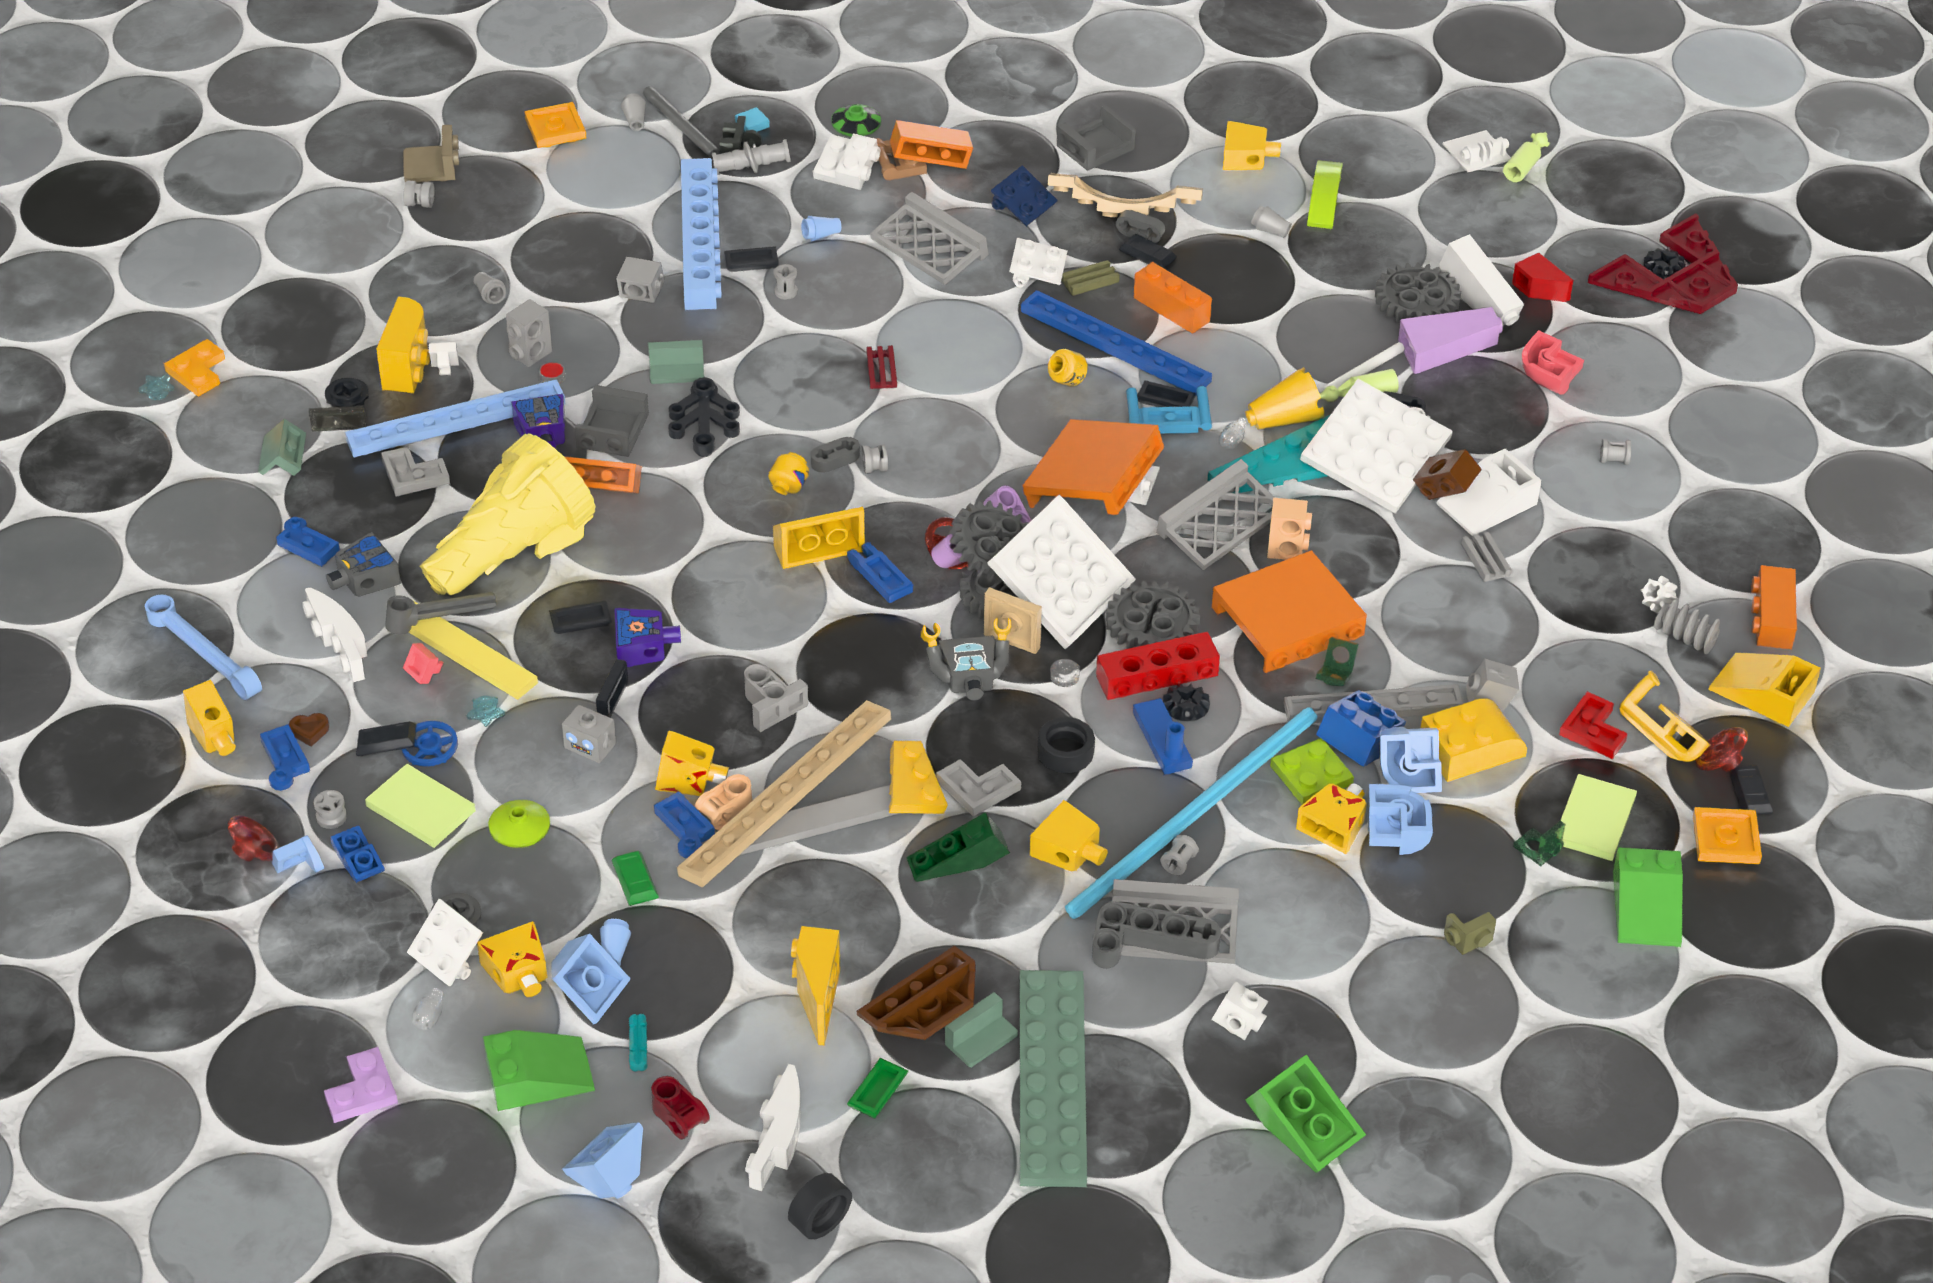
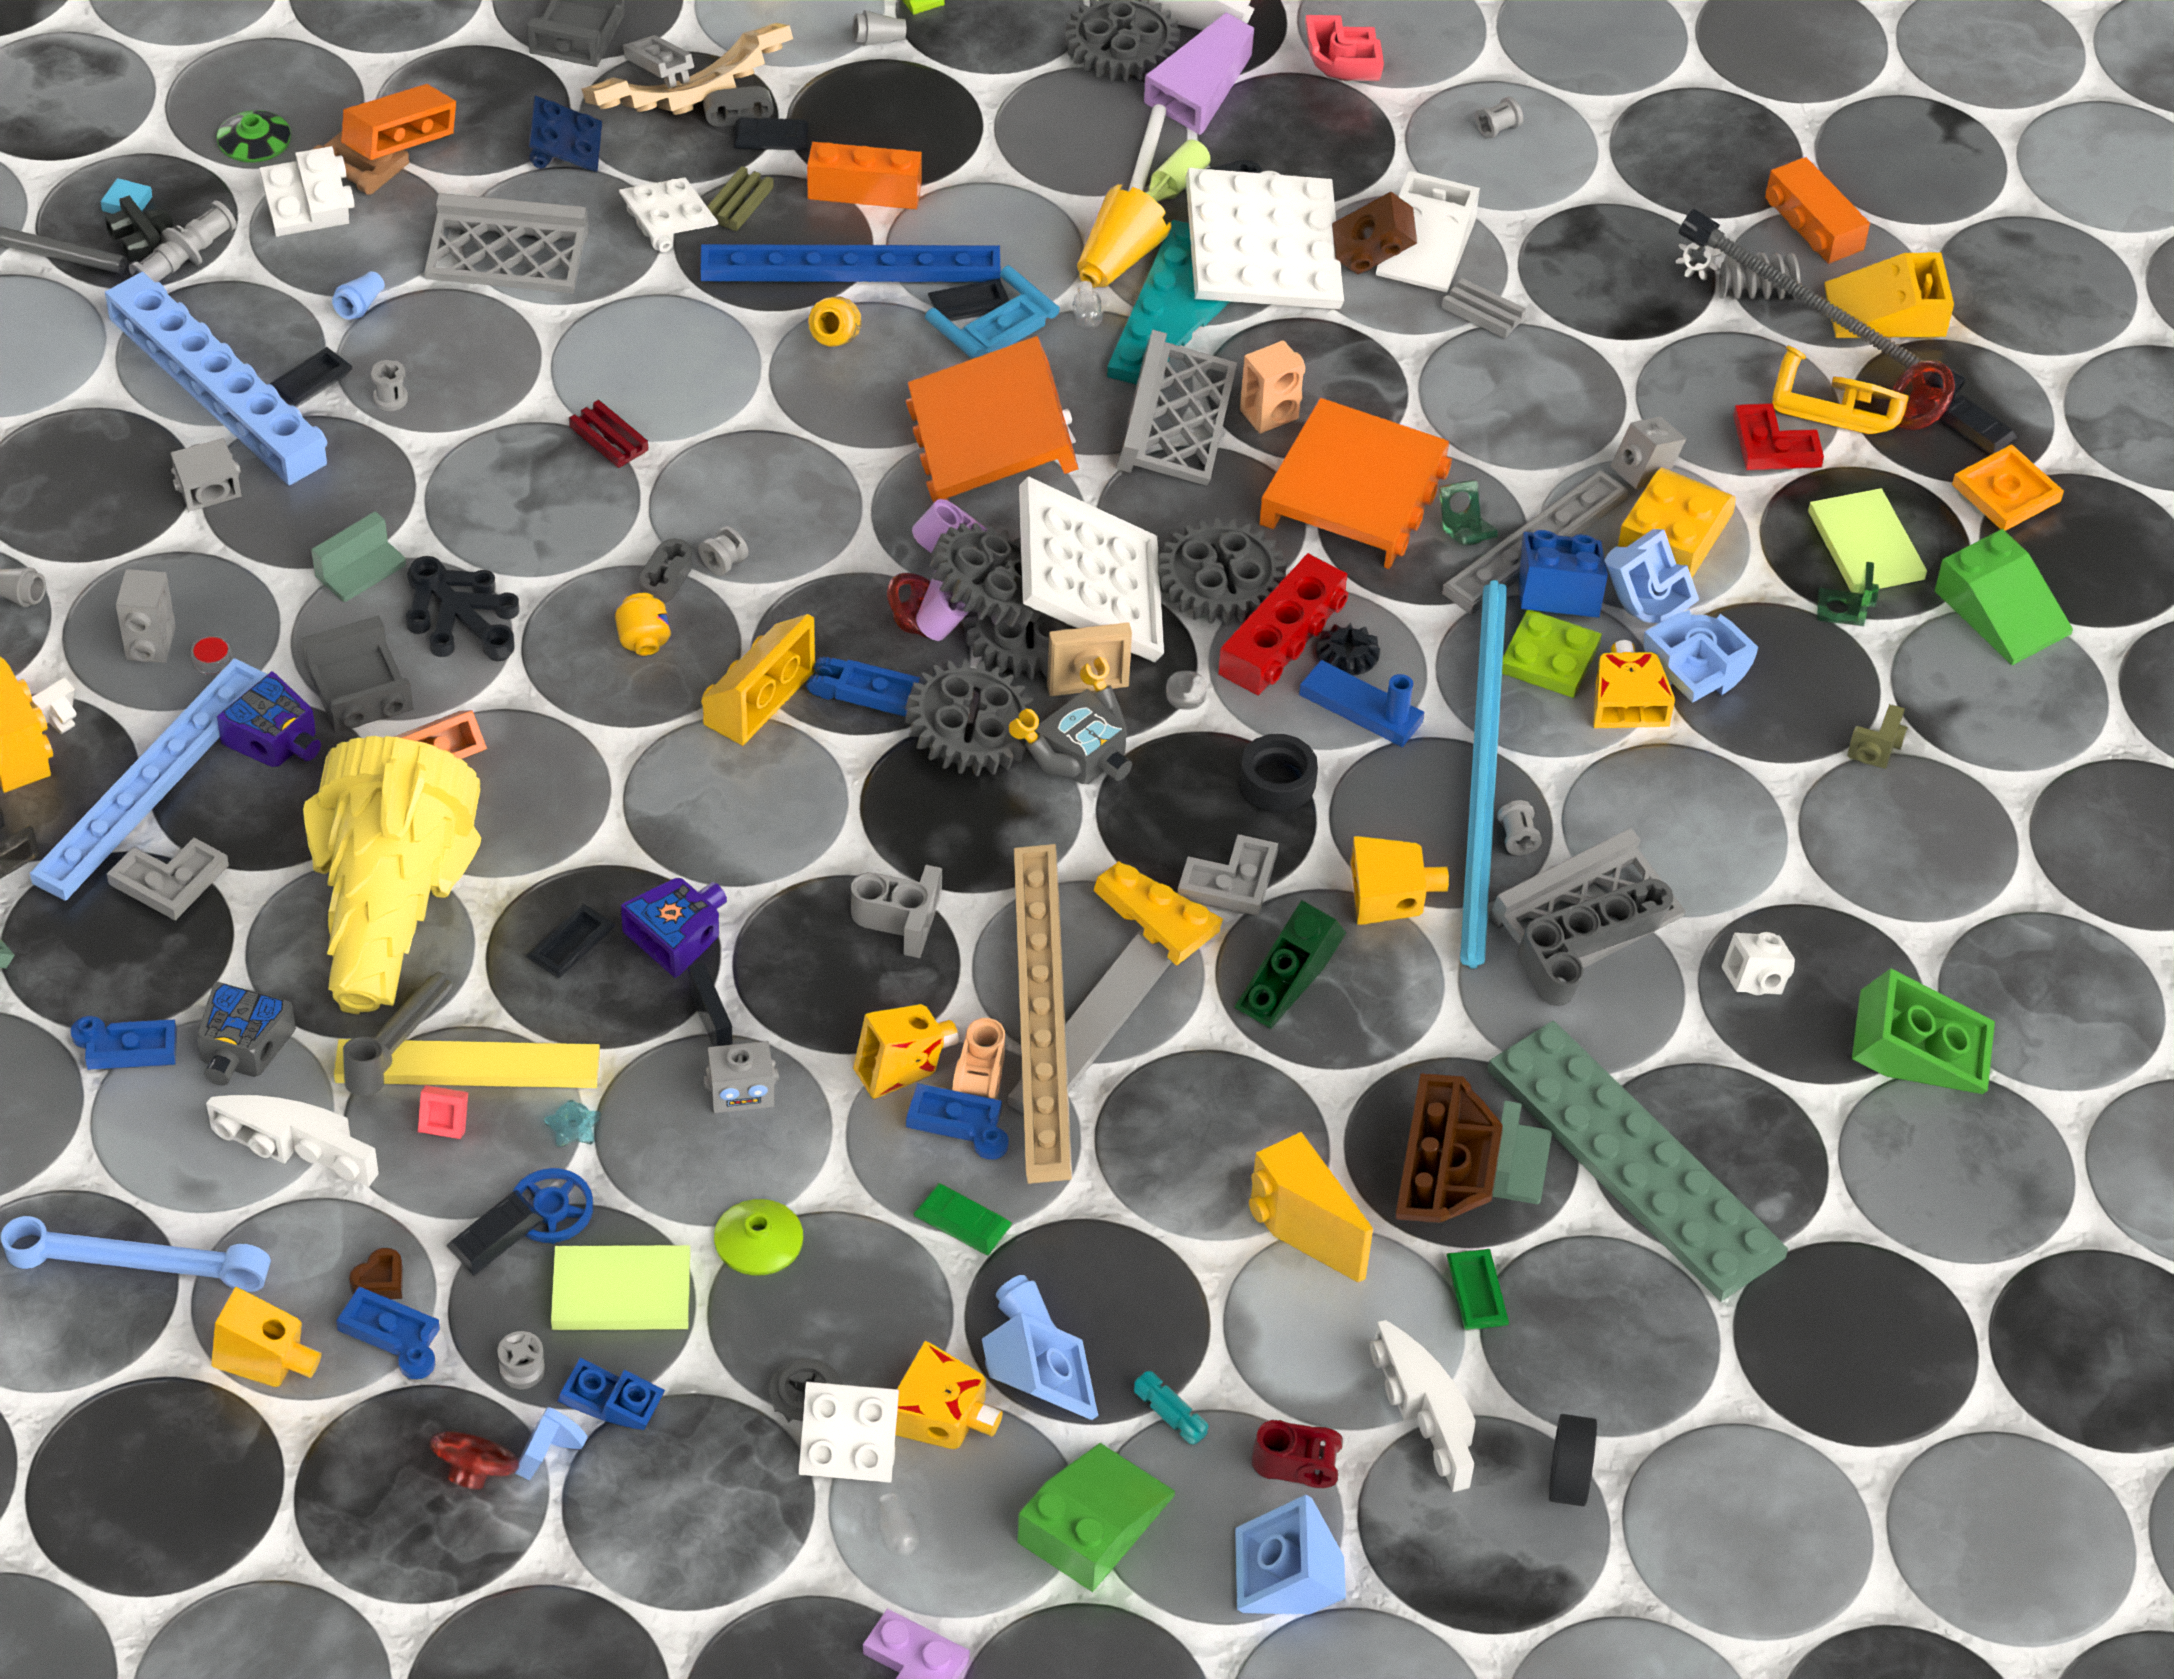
camera: 40 degrees left, 5 degrees up
(915, 606) = (941, 711): none -> dark grey gear
(1117, 178) = (660, 59): none -> light grey hinge
(1662, 575) = (1704, 231): none -> dark grey hose

